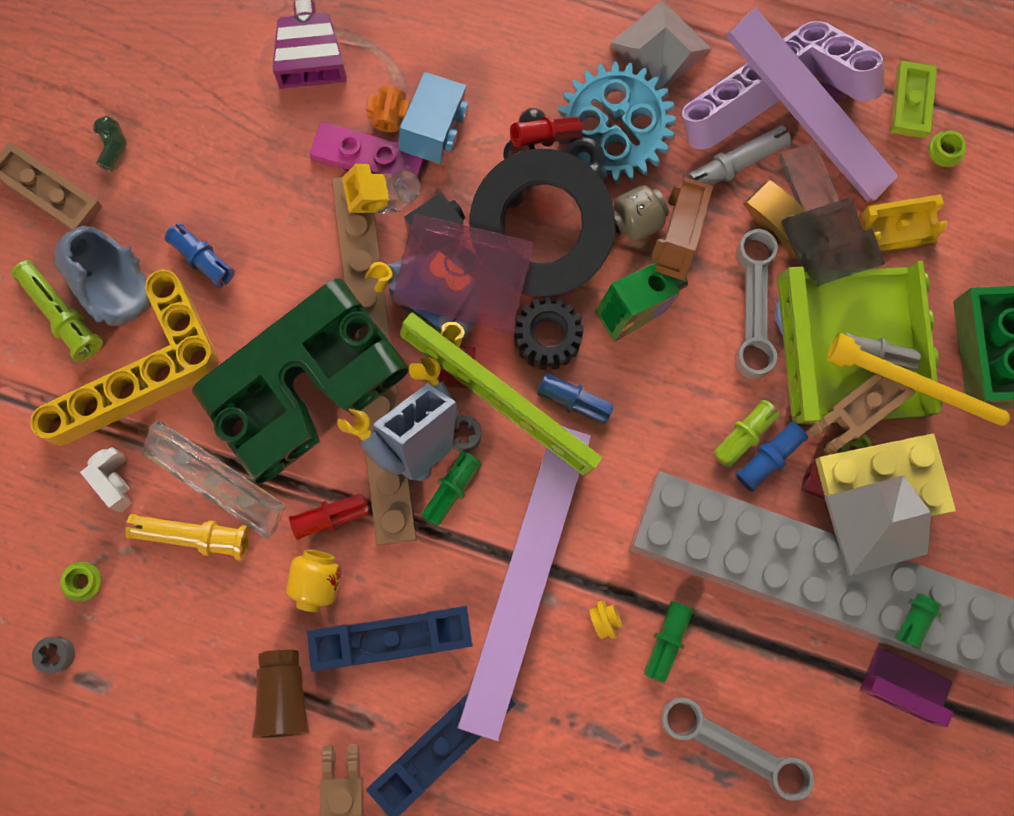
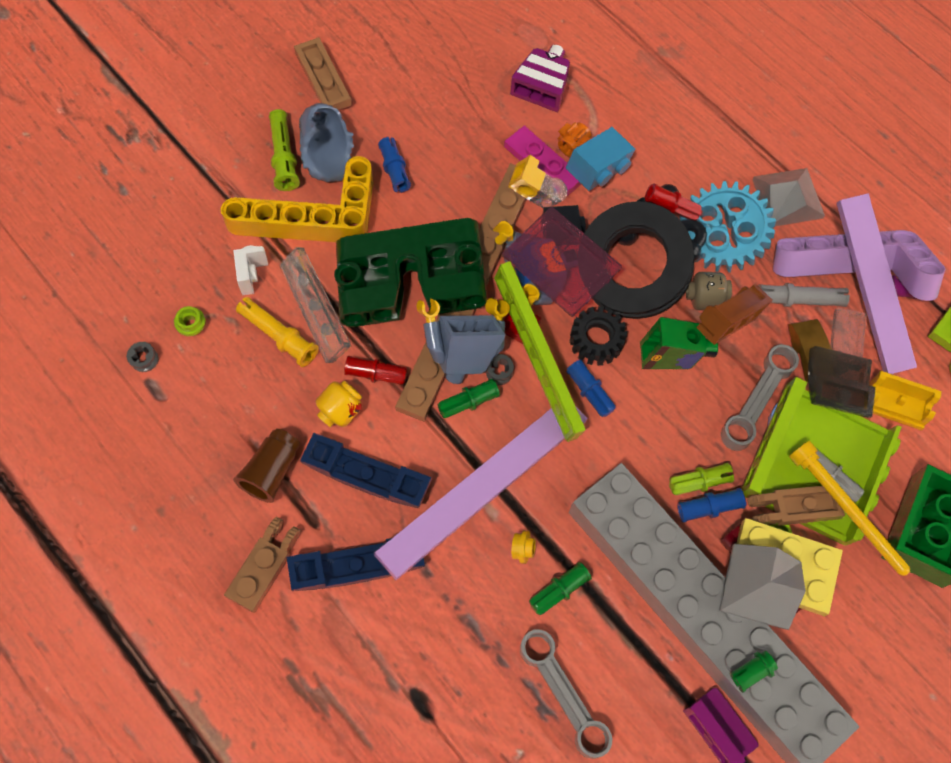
camera: 30 degrees right, 10 degrees down
(113, 141) = (383, 71): clear green arm -> none

